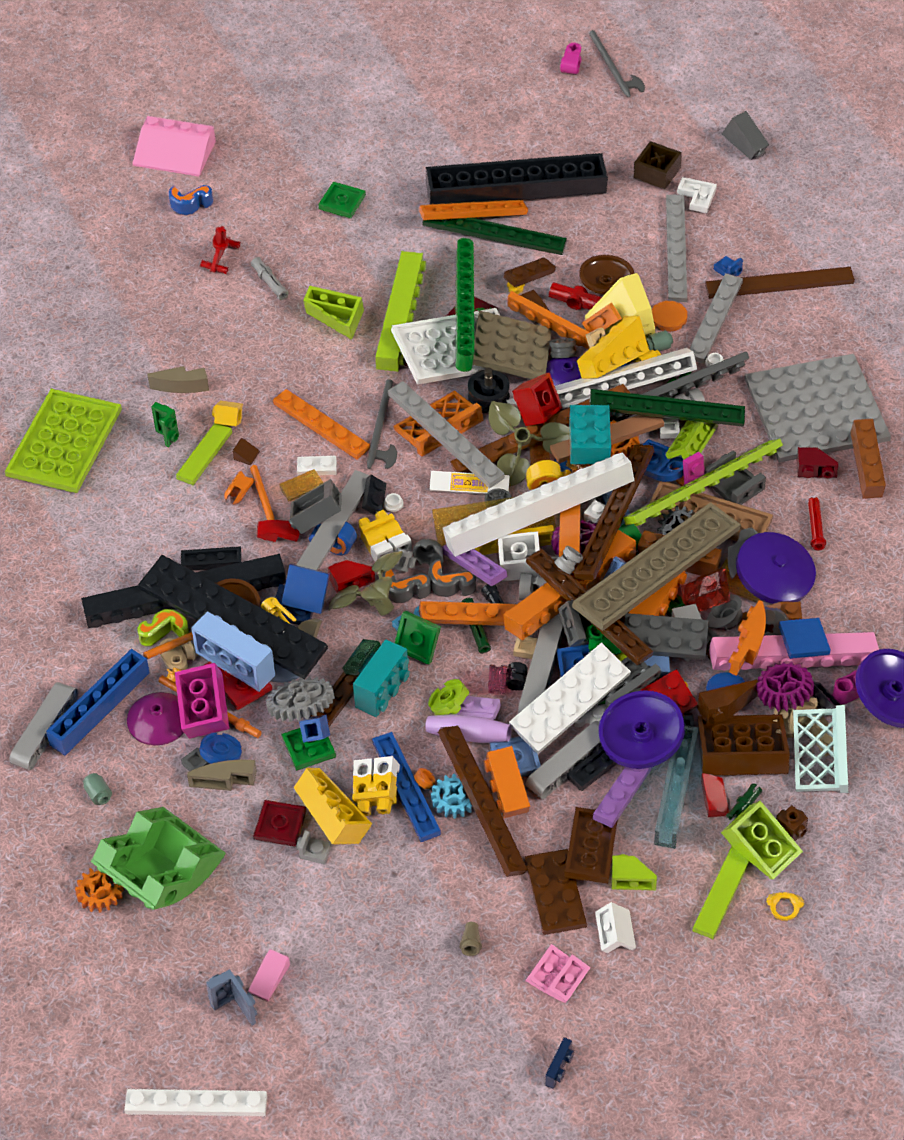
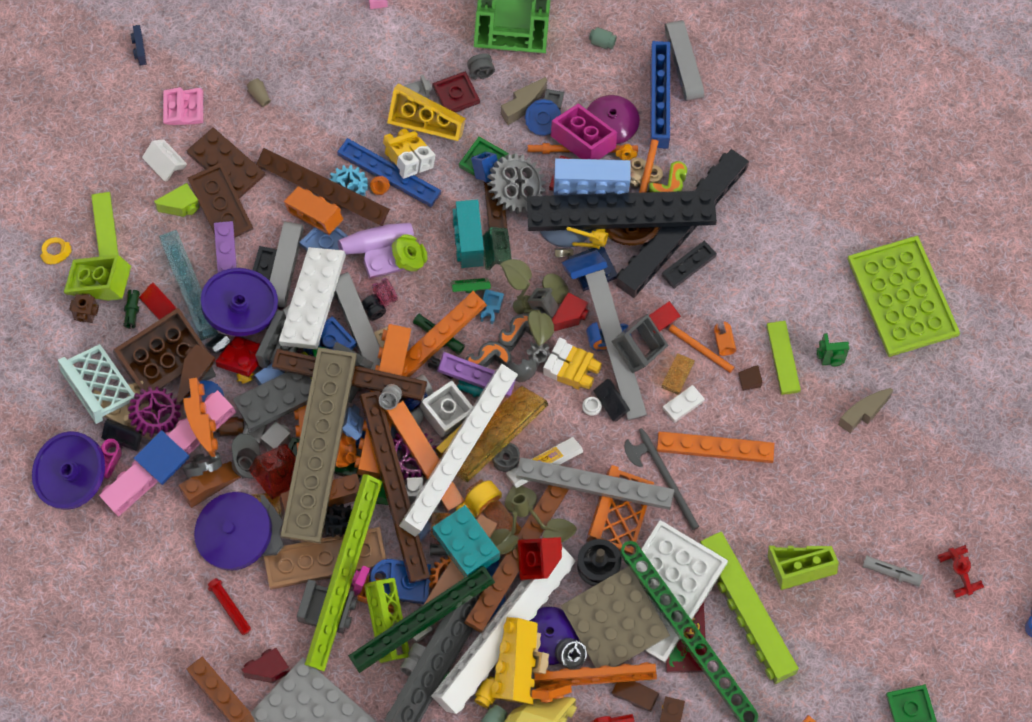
camera: 140 degrees right, 15 degrees up
(227, 413) = (795, 399): yellow brick -> none
(236, 827) = (480, 66): none -> dark grey wheel
(366, 578) = (544, 301): none -> flat silver brick

